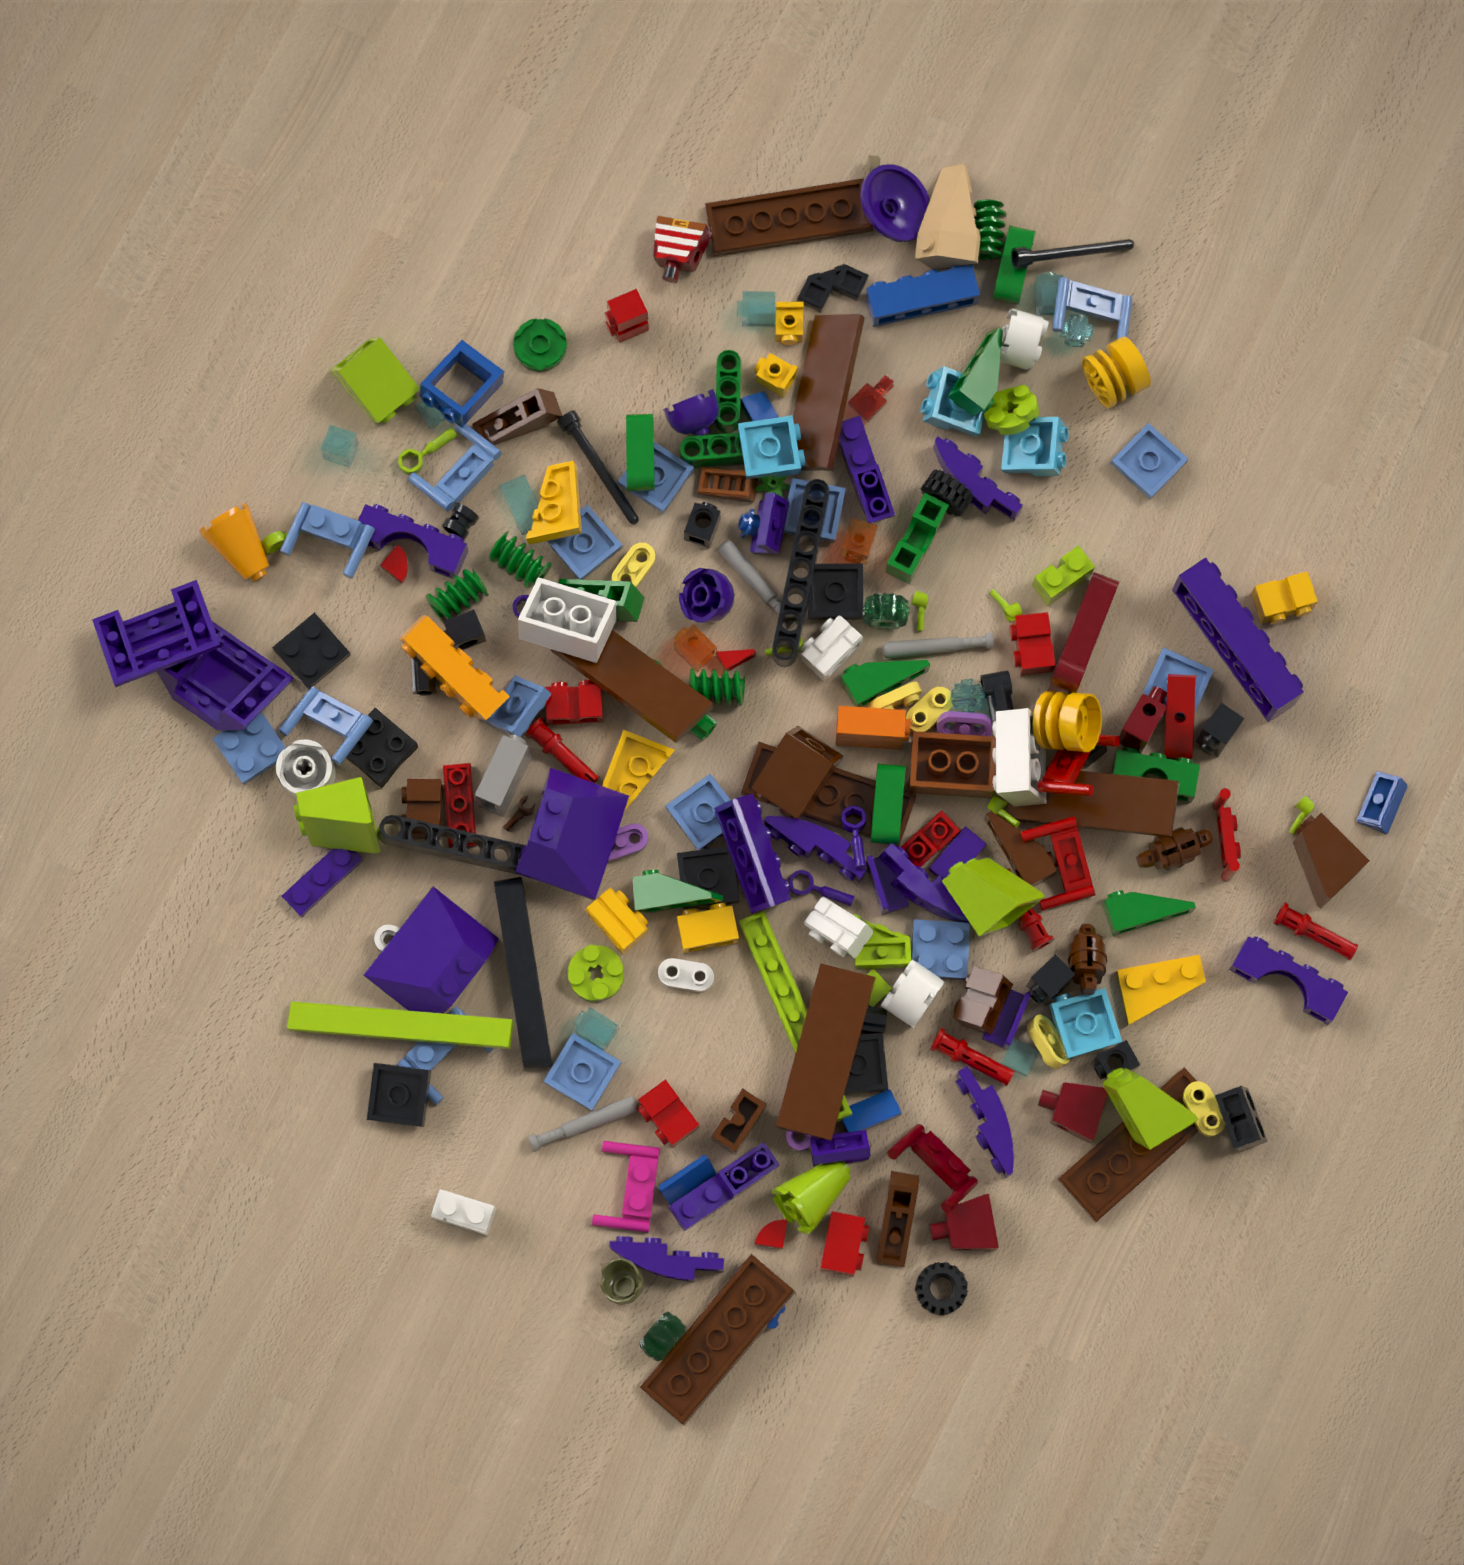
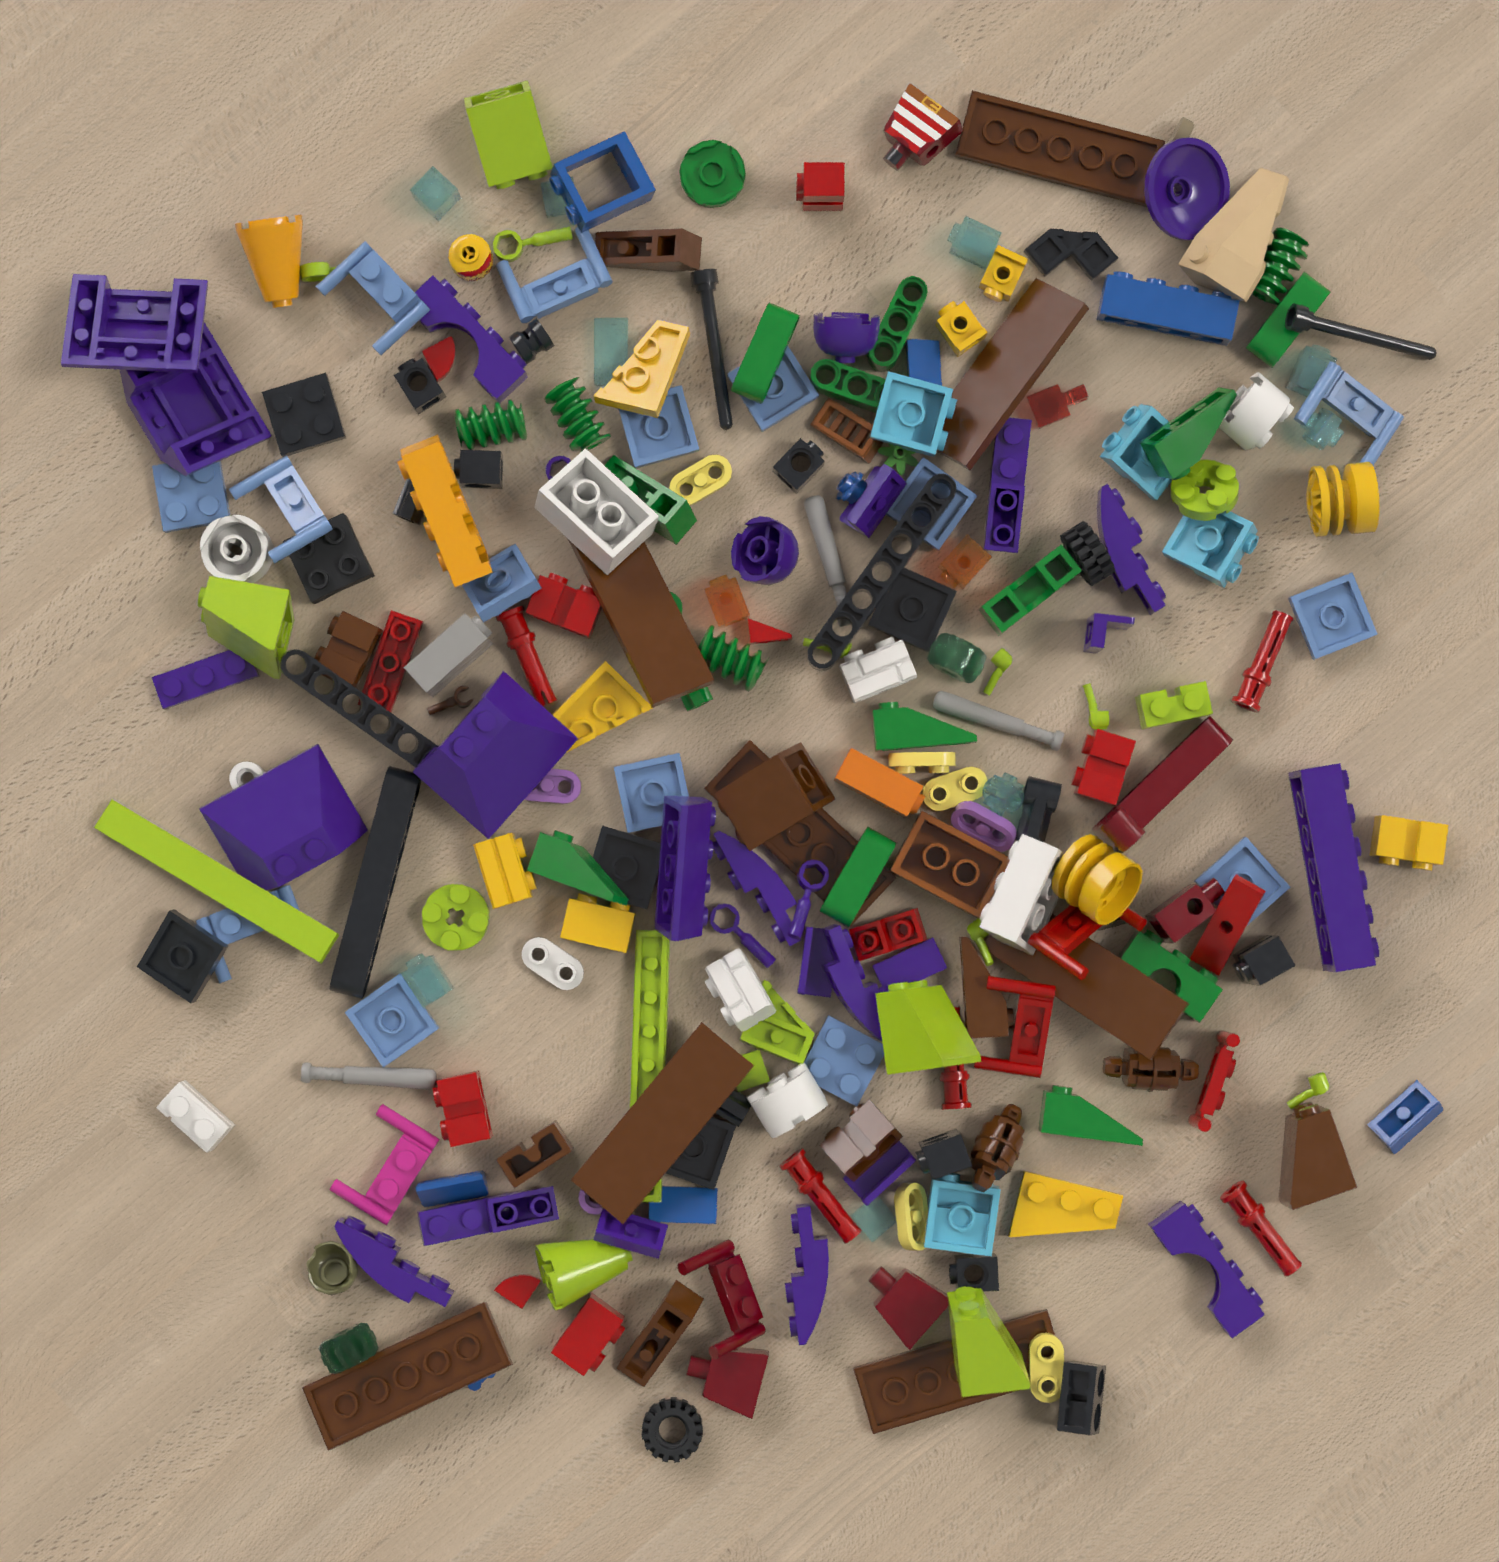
camera: 25 degrees right, 10 degrees up
(382, 486) = (475, 247): none -> yellow head
(395, 600) = (429, 395): none -> black brick
(981, 540) = (1097, 626): none -> dark purple panel
(1115, 528) = (1257, 676): none -> red pin

